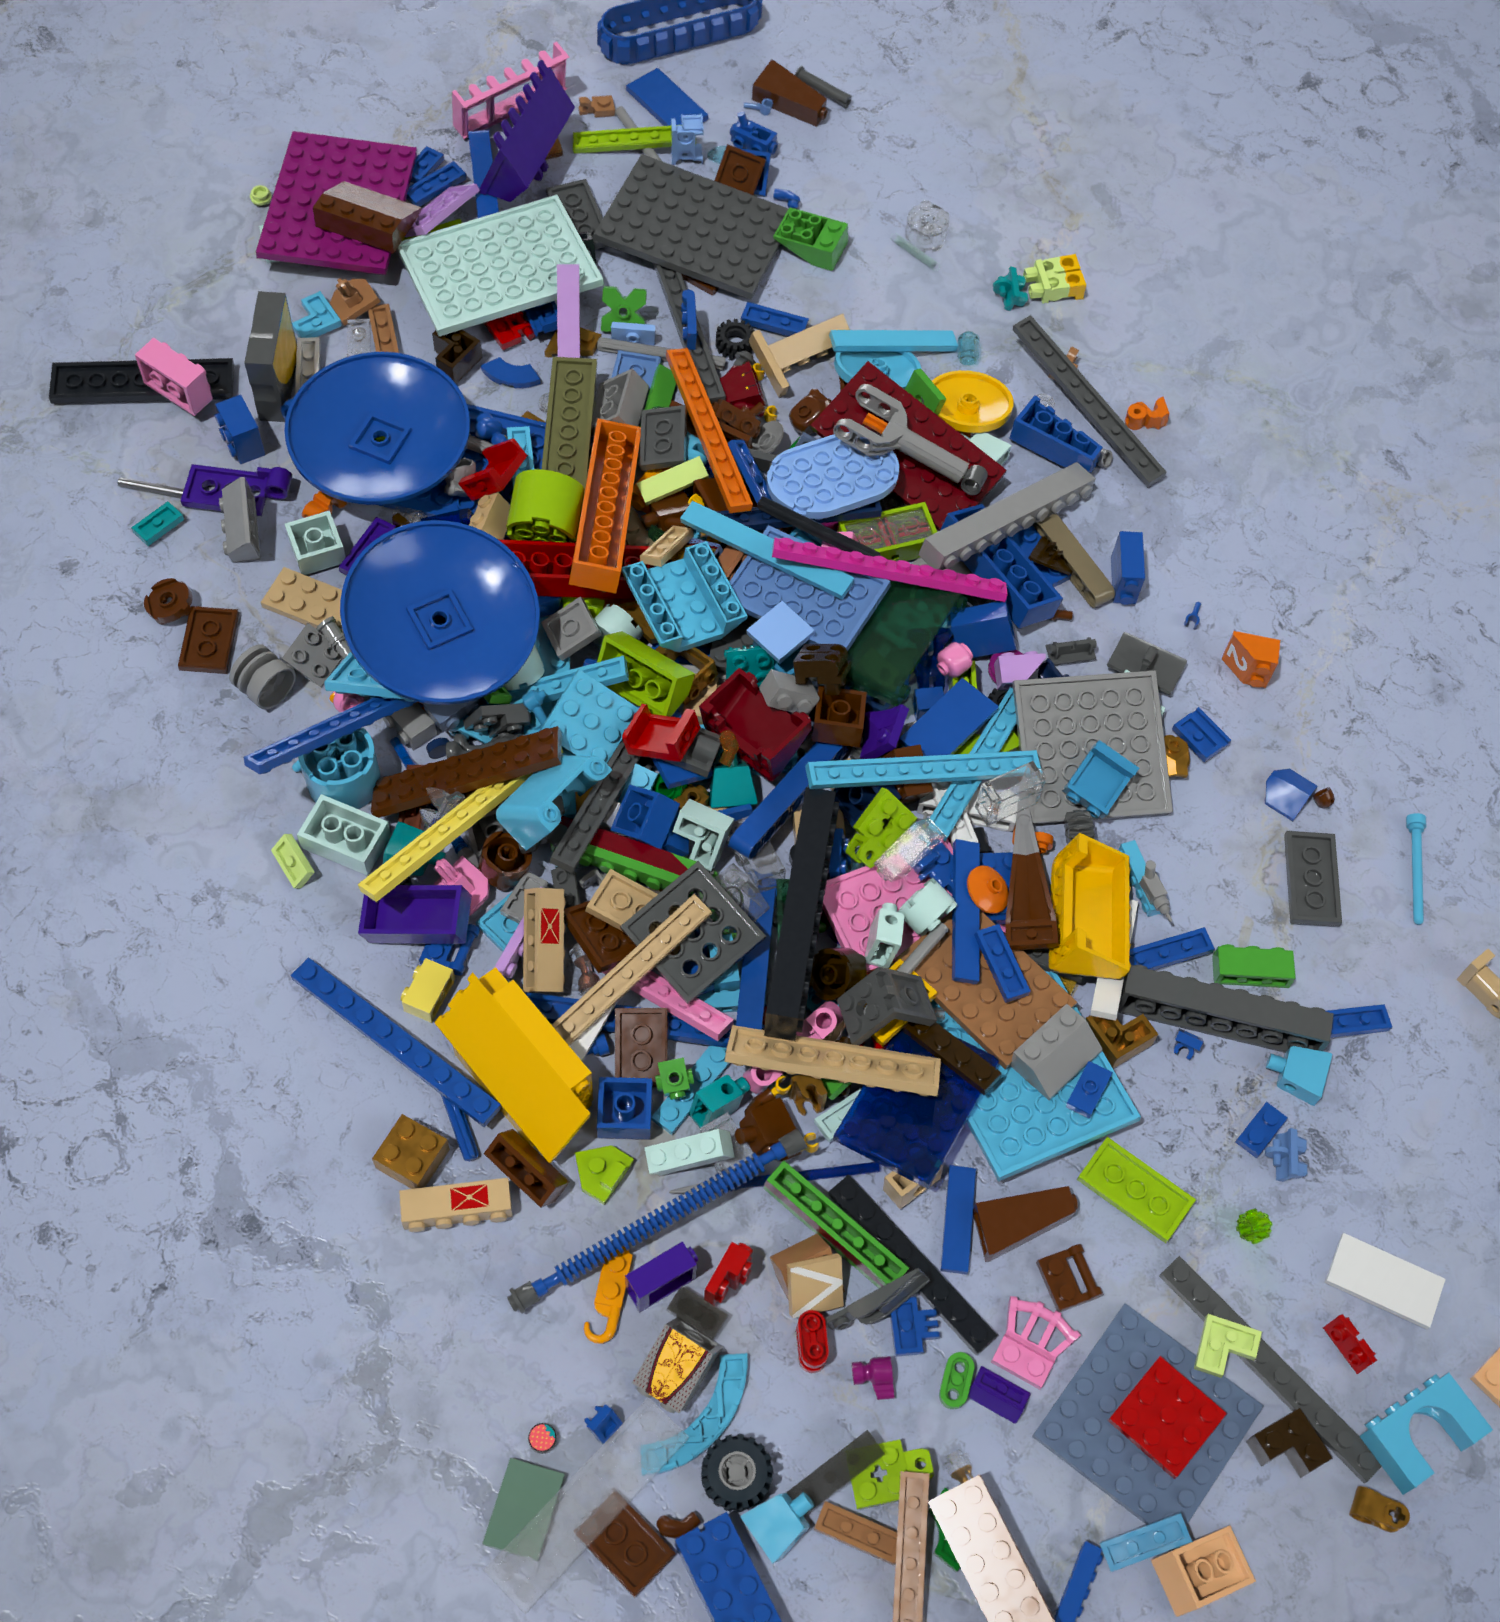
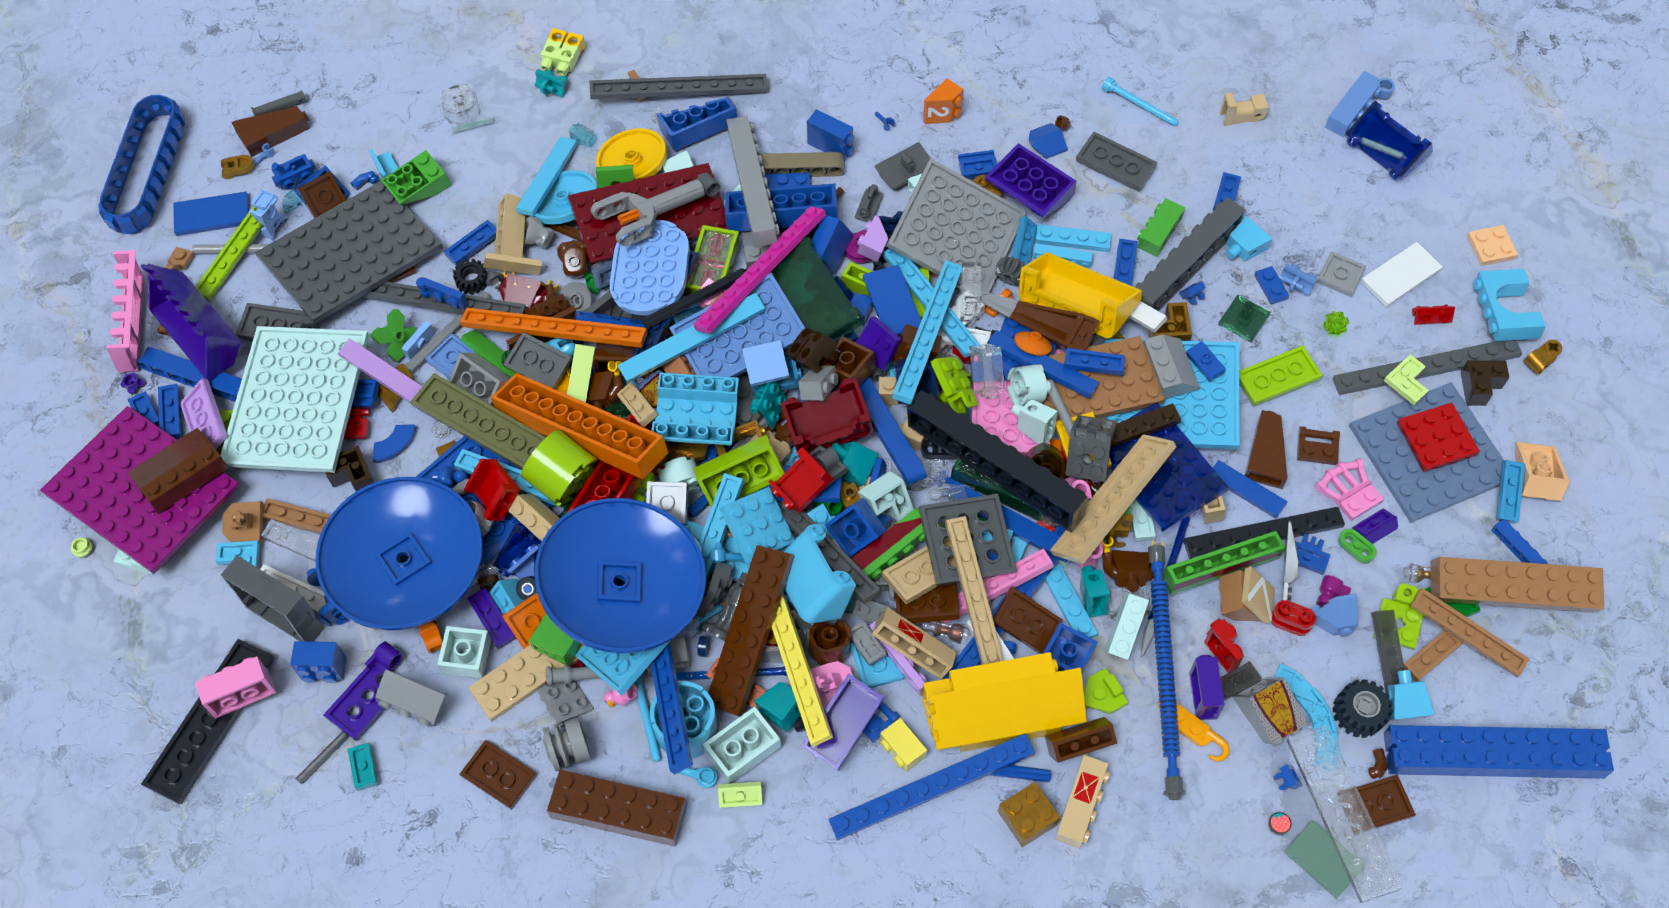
camera: 55 degrees left, 0 degrees up
(176, 608) = (453, 797): reddish brown plate -> none
(219, 760) = (617, 808): none -> reddish brown brick
(296, 815) = (705, 777): none -> medium azure plate
(443, 802) = (770, 656): clear tile -> none
(448, 141) = (128, 380): none -> dark purple plate
(671, 1069) = (1065, 608): bright green brick -> none
(730, 747) = (834, 442): clear orange arm -> none
(731, 92) = (242, 163): none -> pearl gold plate
(813, 201) = (384, 163): none -> medium azure panel
(820, 366) = (537, 233): none -> light grey hair
(842, 1392) = (1338, 615): none -> medium blue slope
(954, 659) = (847, 270): bright pink head -> none
(1047, 556) = (790, 177): dark brown piece -> none
(1099, 780) = (984, 237): dark azure panel -> none
(1129, 828) = (1024, 240): none -> dark azure plate
(1141, 415) = (714, 58): orange leg -> none
(1155, 890) = (1081, 250): light grey piece -> none
(1175, 880) = (1073, 238): none -> medium azure plate
(1192, 1118) = (1244, 318): none -> clear green tile
(1210, 797) = (1032, 181): none -> dark purple slope
(1334, 1206) = (1341, 274): none -> light grey tile

